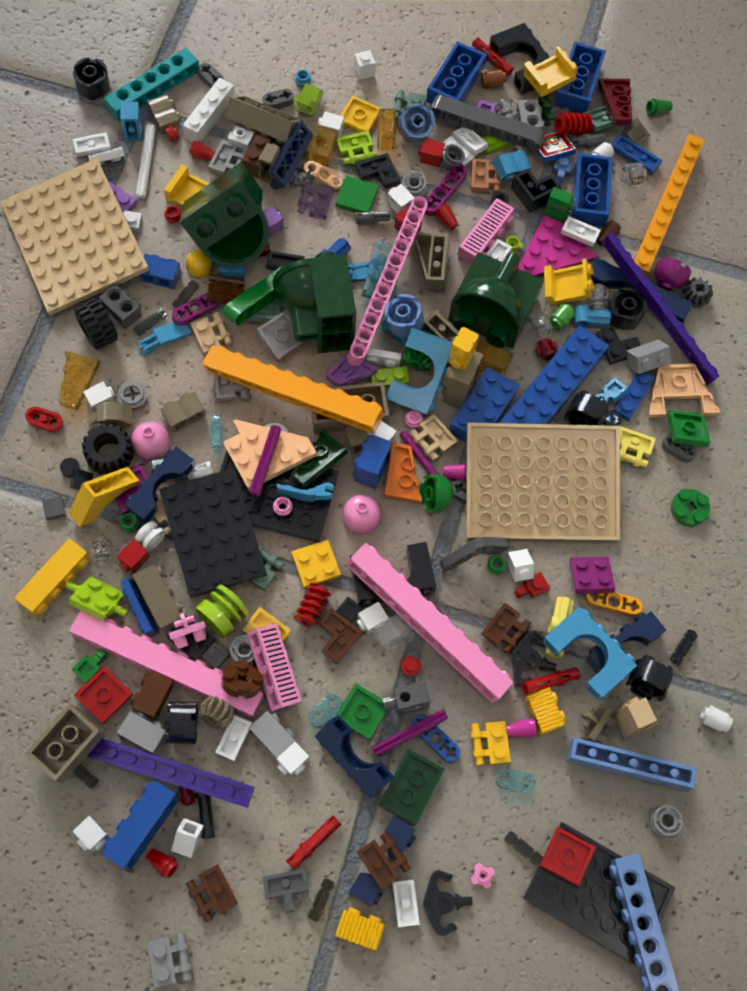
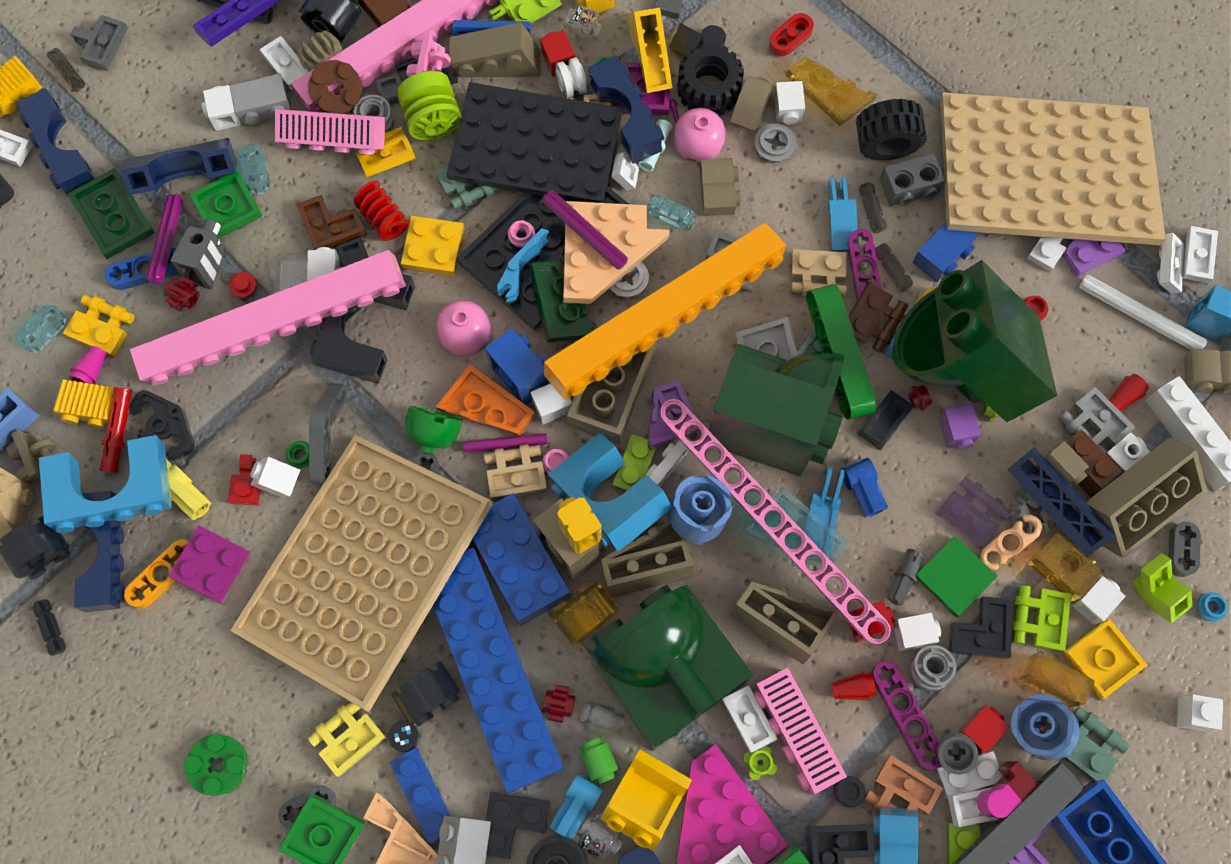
camera: 125 degrees right, 5 degrees up
(172, 133) = (1176, 366): red plate -> none
(183, 186) = (1072, 344): yellow panel -> none
(309, 846) = (123, 79): red pin -> none
(378, 864) = (44, 123): reddish brown plate -> none
(441, 698) = (181, 293): none -> dark red gear
(455, 472) = (453, 468): dark pink cone -> none
(459, 127) = (1007, 792): none -> leg
(500, 625) = (222, 414): reddish brown plate -> none
(613, 391) = (442, 762): dark azure plate -> none

